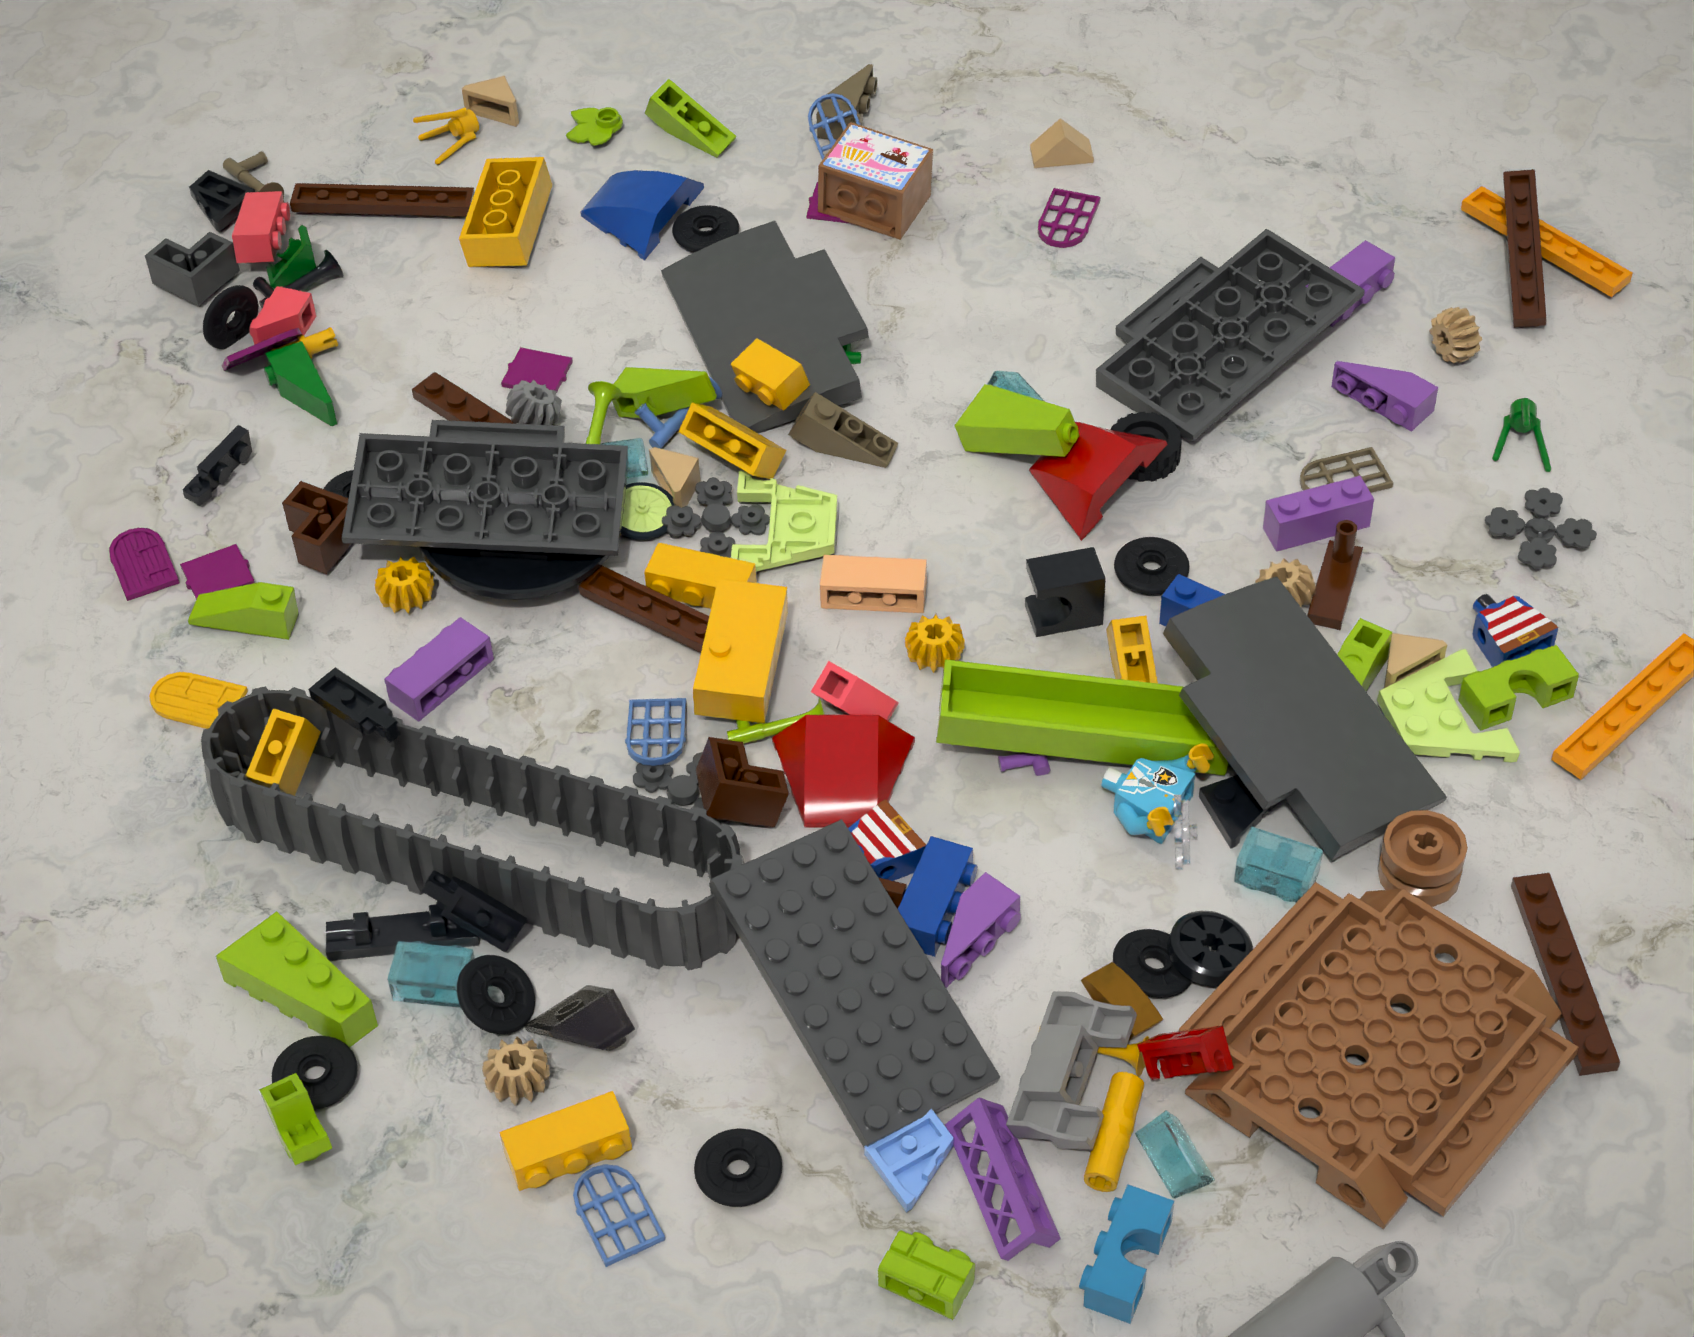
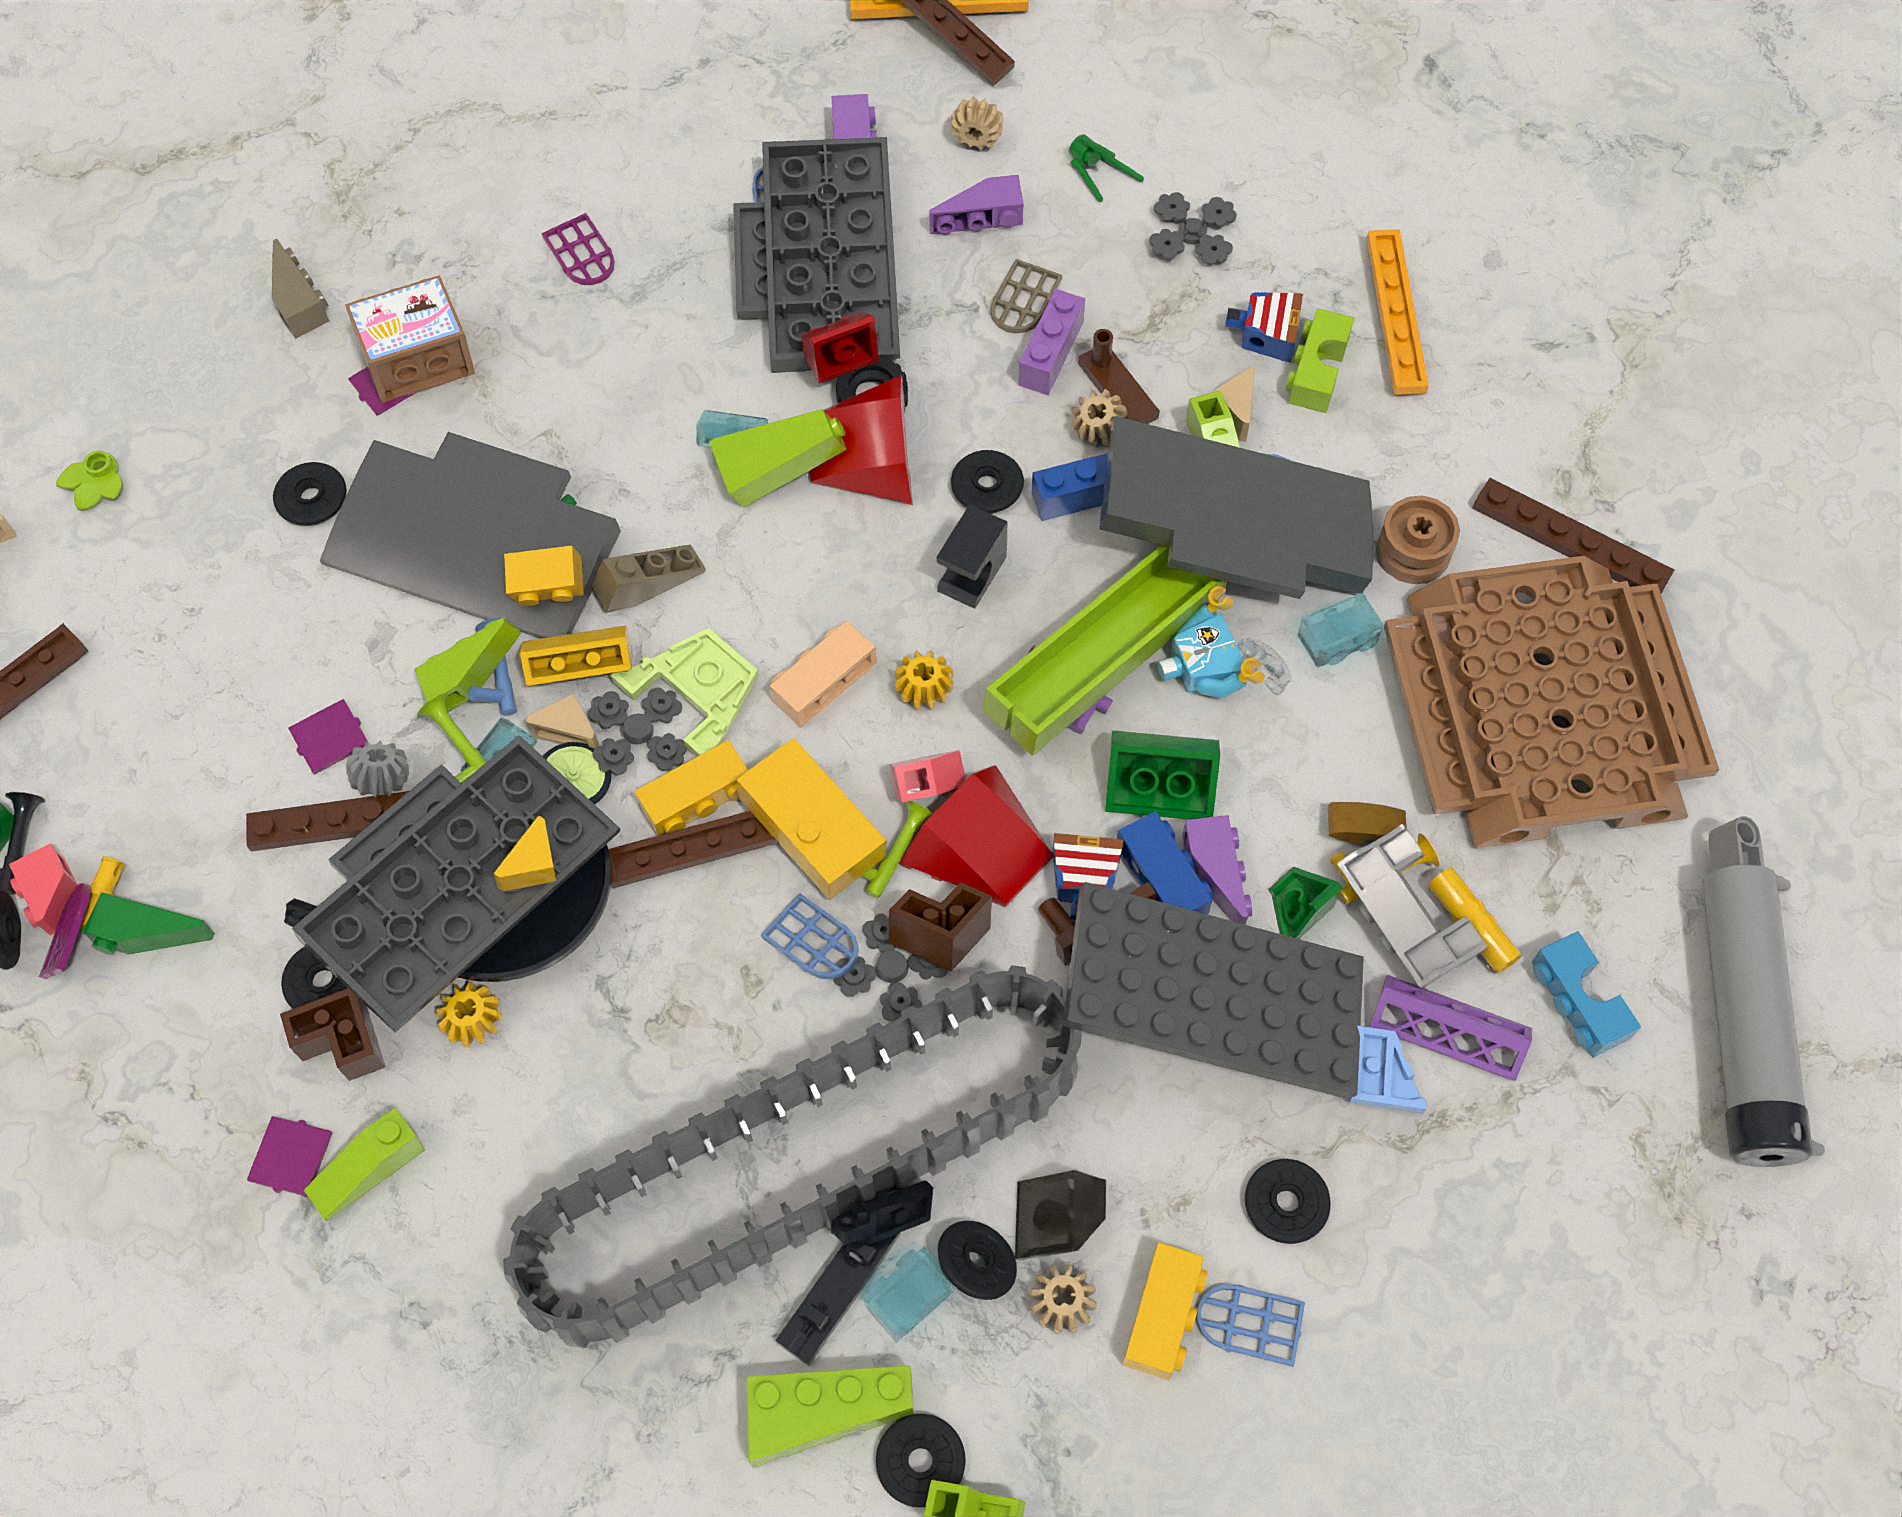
camera: 50 degrees left, 15 degrees up
(141, 562) = (208, 1211): magenta window -> none
(192, 697) = (419, 1275): yellow window -> none
(218, 465) = (170, 1070): black hinge -> none
(283, 752) = (597, 1253): yellow brick -> none
(355, 705) = (621, 1158): black hinge -> none
(439, 669) = (589, 1055): medium lavender brick -> none
(506, 212) = (124, 621): yellow brick -> none
(535, 512) = (529, 860): none -> yellow slope
(639, 205) = (227, 522): blue wedge -> none
(687, 120) = (175, 410): lime slope -> none
(825, 121) = (303, 322): medium blue window -> none
(927, 1273) = (1496, 1141): lime brick -> none
(1004, 1008) = (1302, 900): none -> green slope
(1016, 838) = (1162, 775): none -> green slope
(1060, 147) = (506, 195): tan slope -> none
(1131, 649) = (1071, 565): yellow slope -> none
(1131, 955) = (1335, 759): black wheel -> none
(1145, 391) = (841, 346): none -> red slope
(1174, 1155) = (1521, 898): clear light blue slope -> none
(1187, 1052) = (1463, 817): red hinge -> none
(1210, 929) = (1369, 749): black wheel -> none
(1232, 808) = (1258, 614): black wing -> none
(1431, 721) = (1292, 431): yellowish green wing -> none

